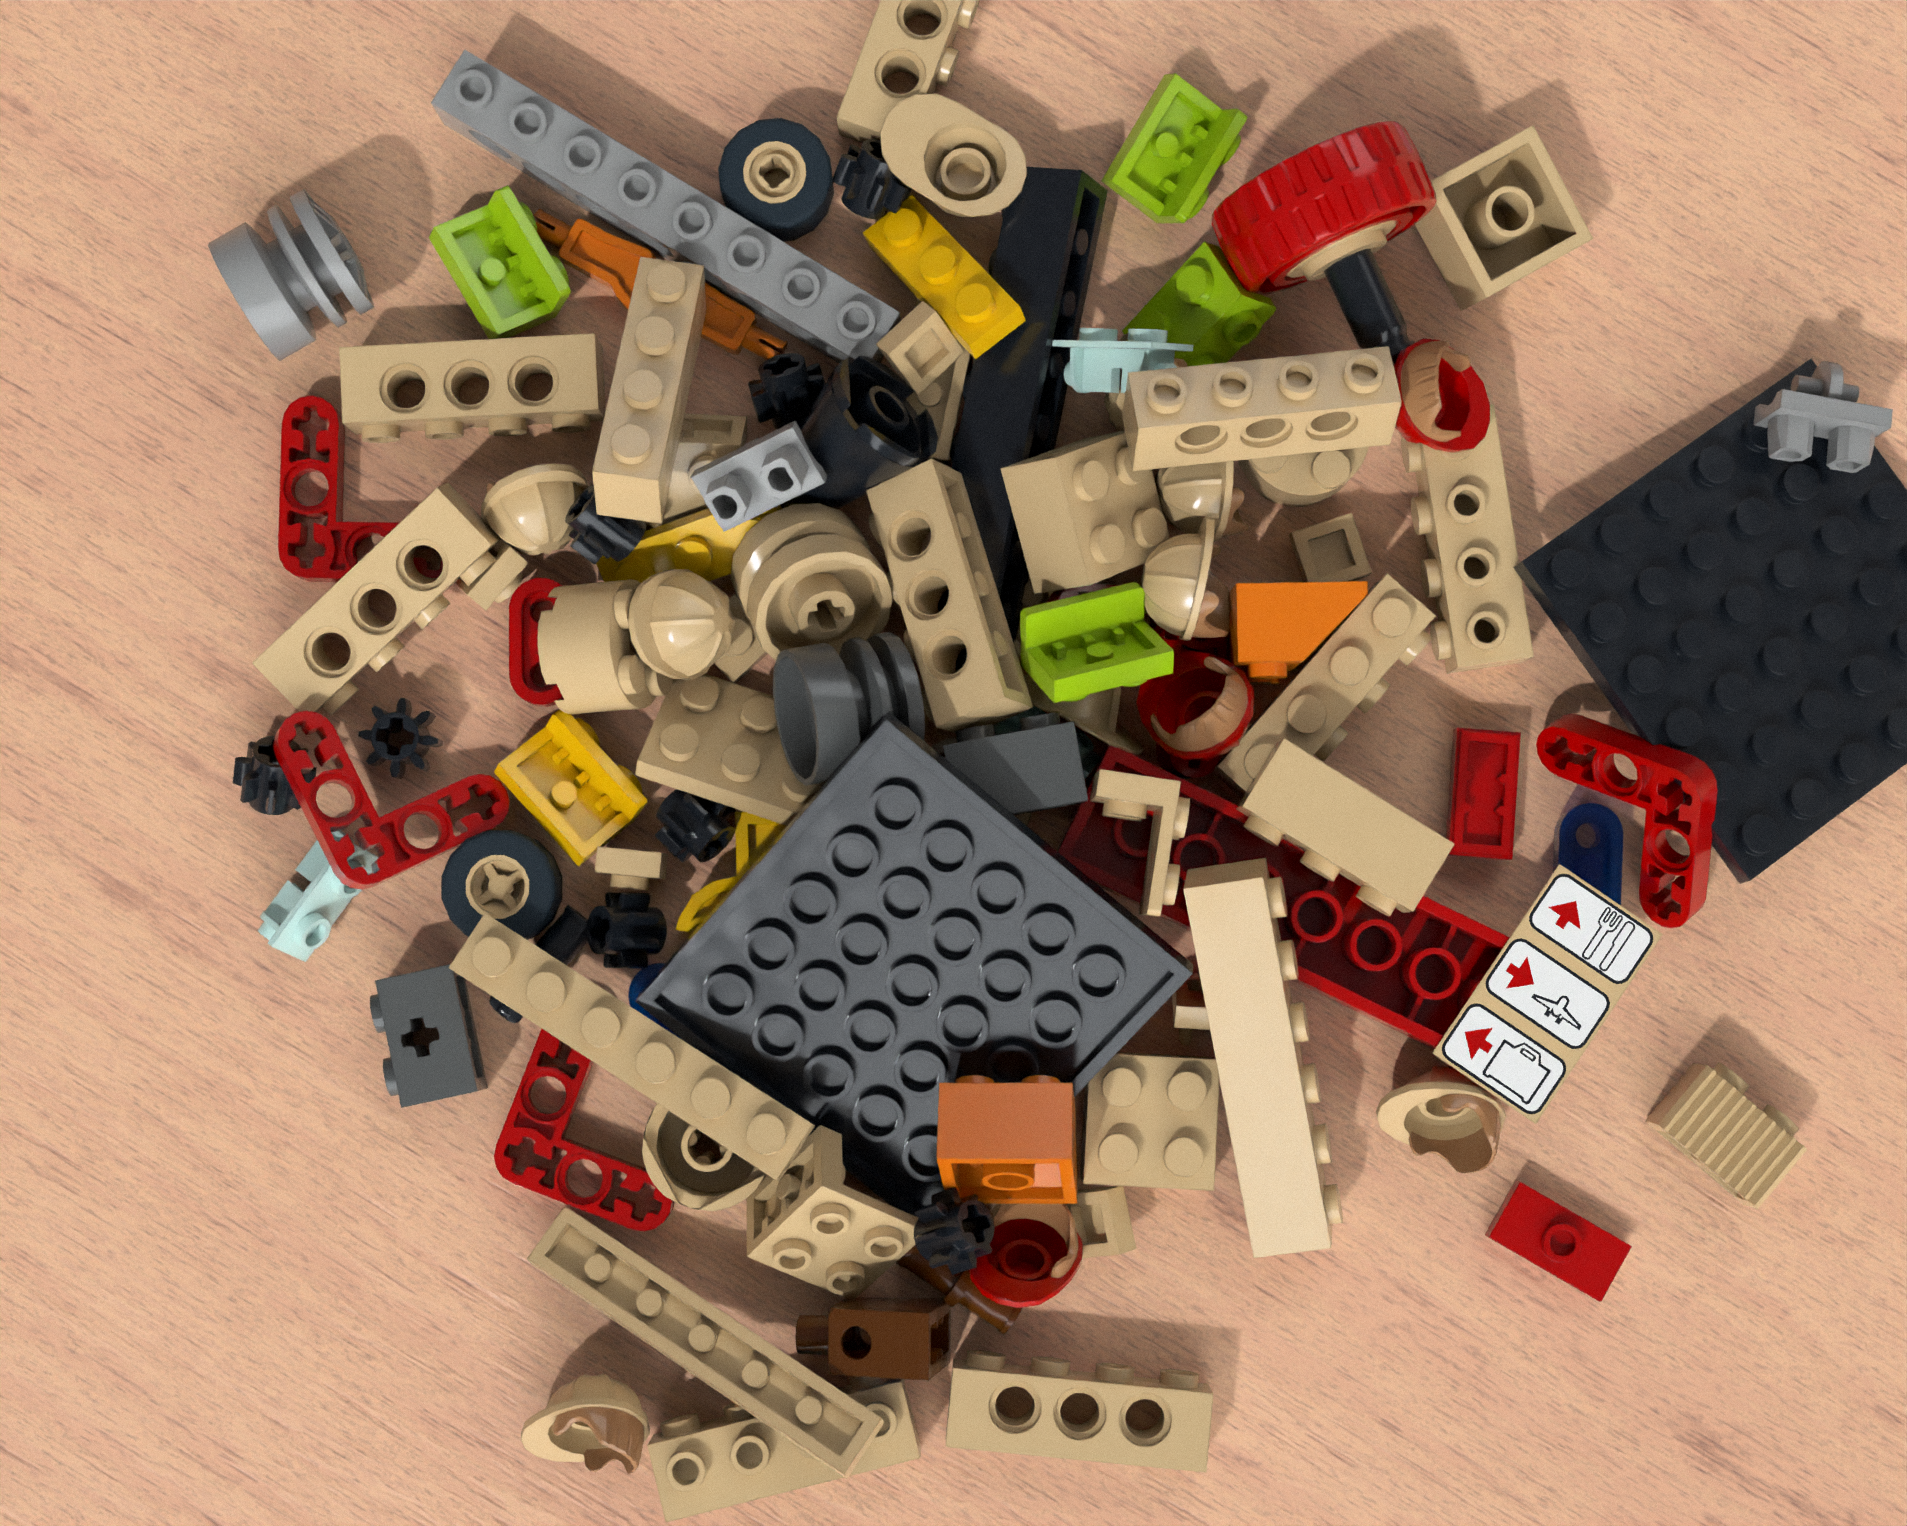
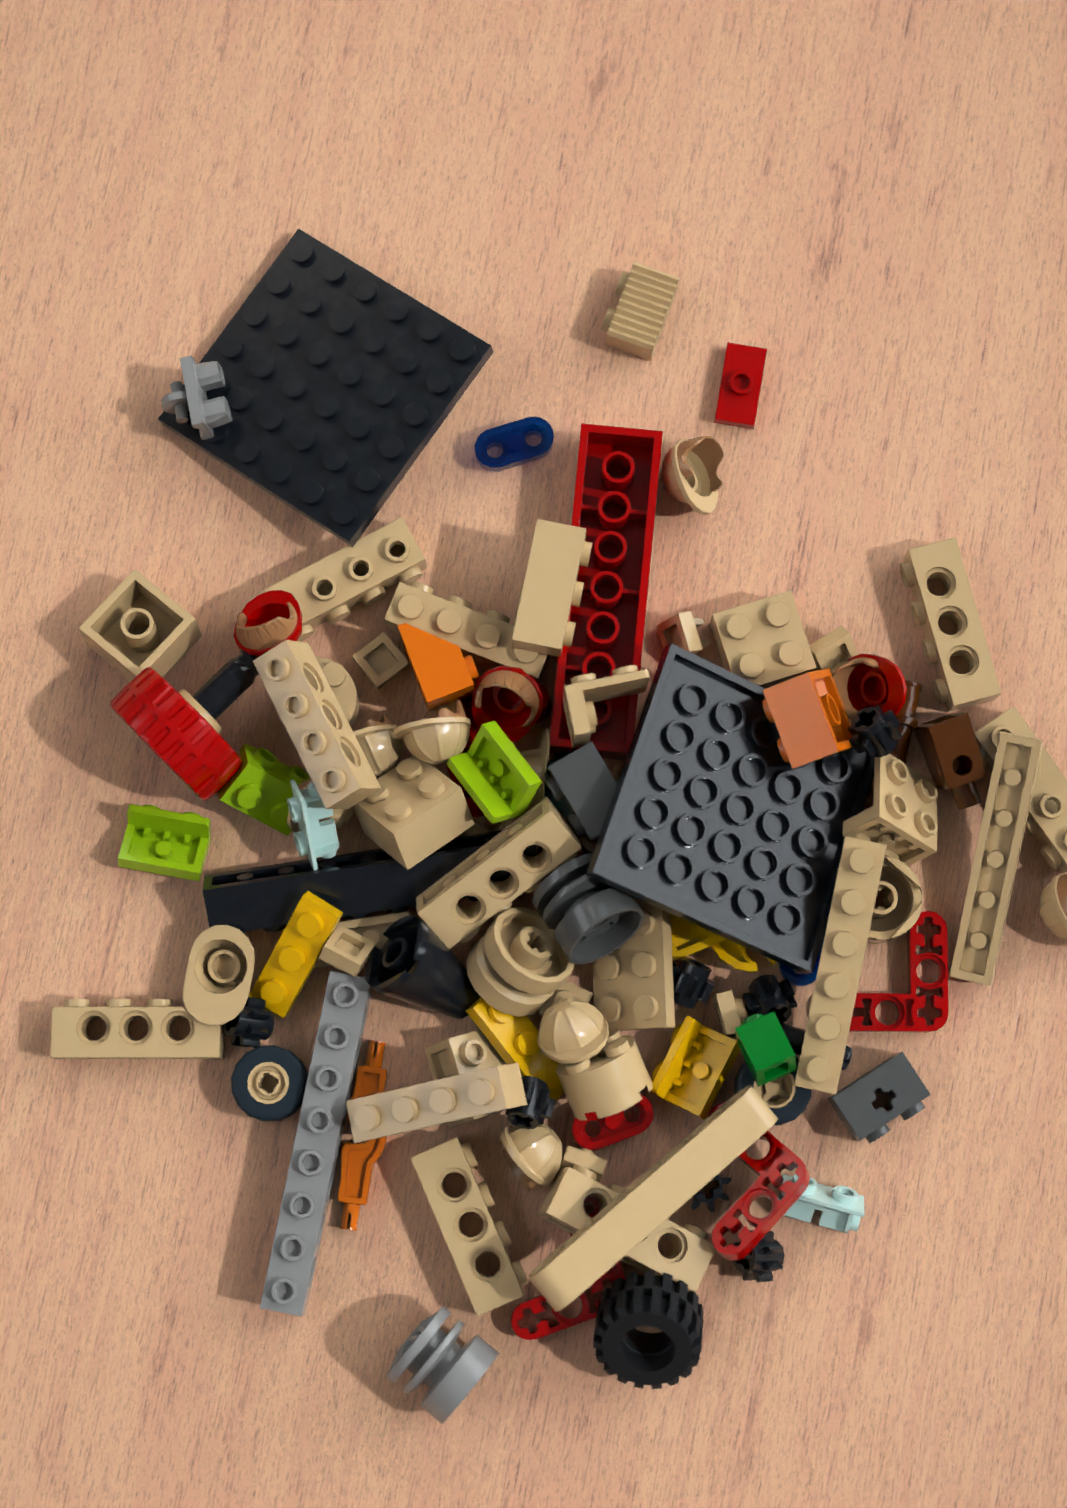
camera: 110 degrees left, 5 degrees down
(225, 577) = (642, 1355): none -> black tyre
(399, 647) = (652, 1198): none -> tan beam
(502, 266) = (386, 1236): lime bracket -> none
(554, 890) = (765, 1048): none -> green brick
(758, 476) = (466, 1014): light grey hips -> none
(785, 389) = (401, 1025): black gear -> none
(1260, 1056) = (702, 590): tan brick -> none
(1483, 793) = (493, 520): red plate -> none
(1547, 993) = (601, 438): sticker -> none
(1656, 794) = (448, 468): red beam -> none

